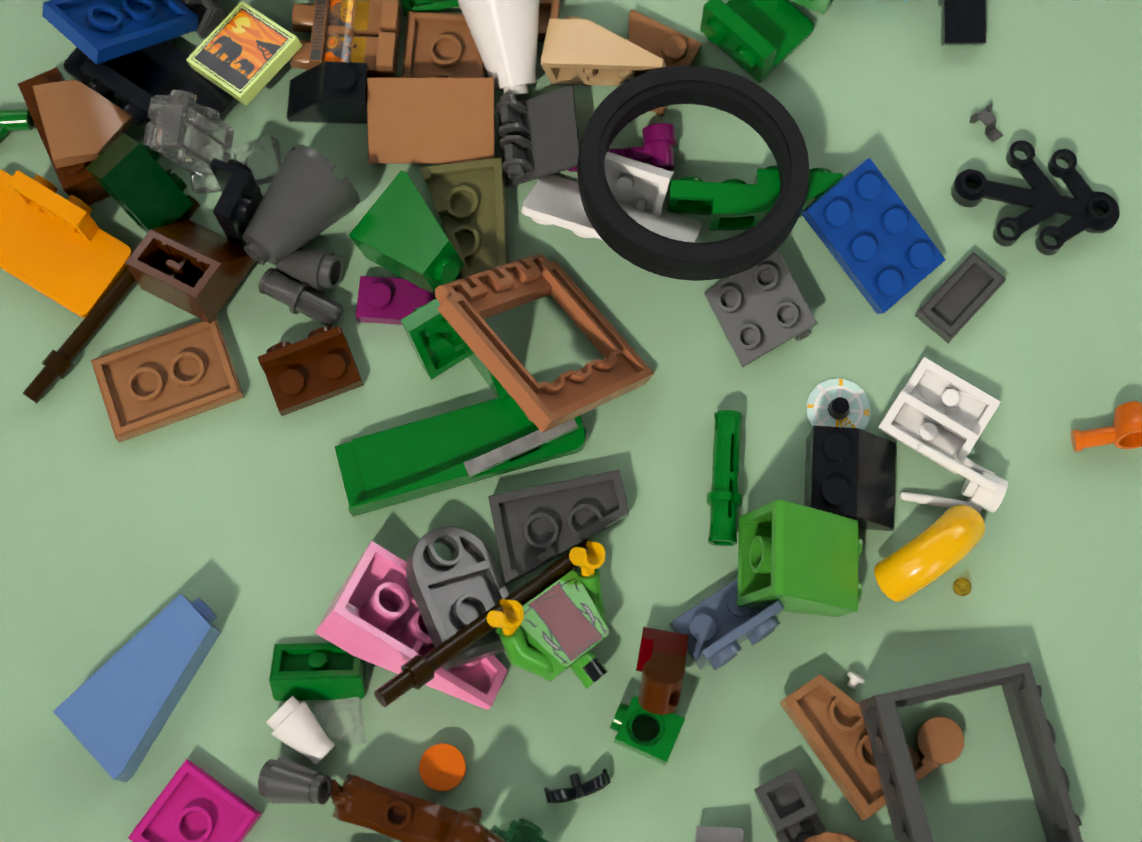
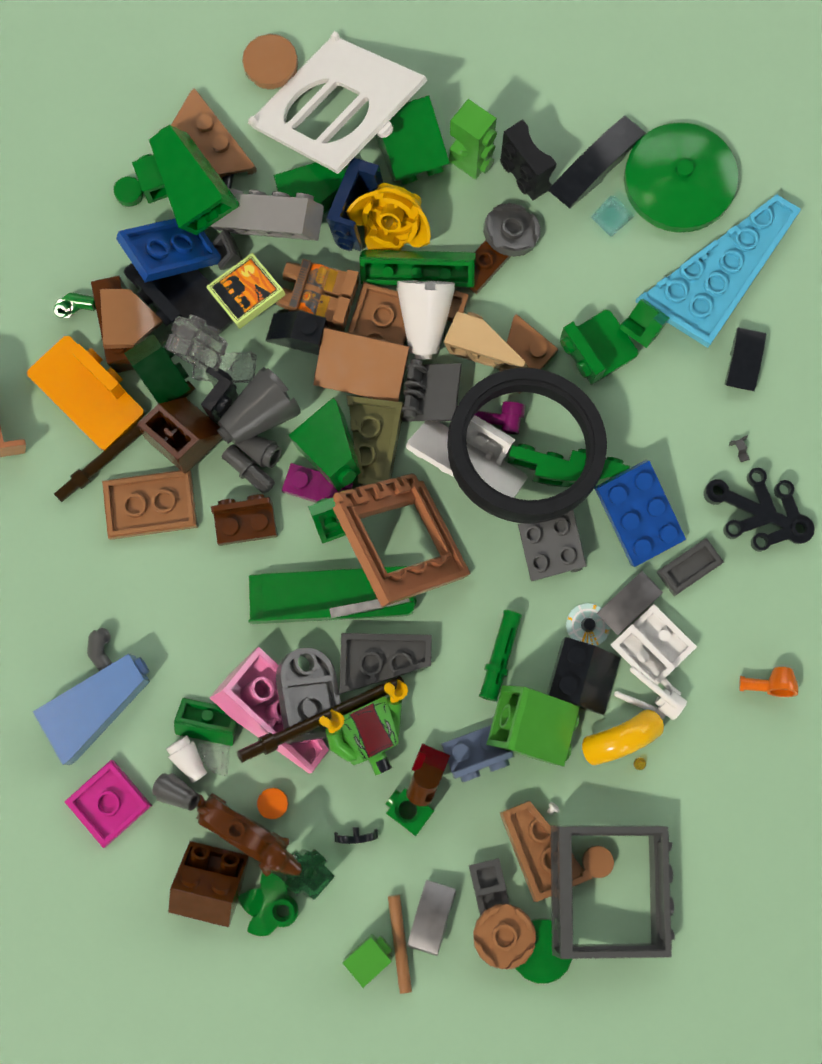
camera: 15 degrees right, 5 degrees up
(130, 600) = (95, 649): none -> dark grey arm
(889, 363) = (629, 603): none -> flat silver slope

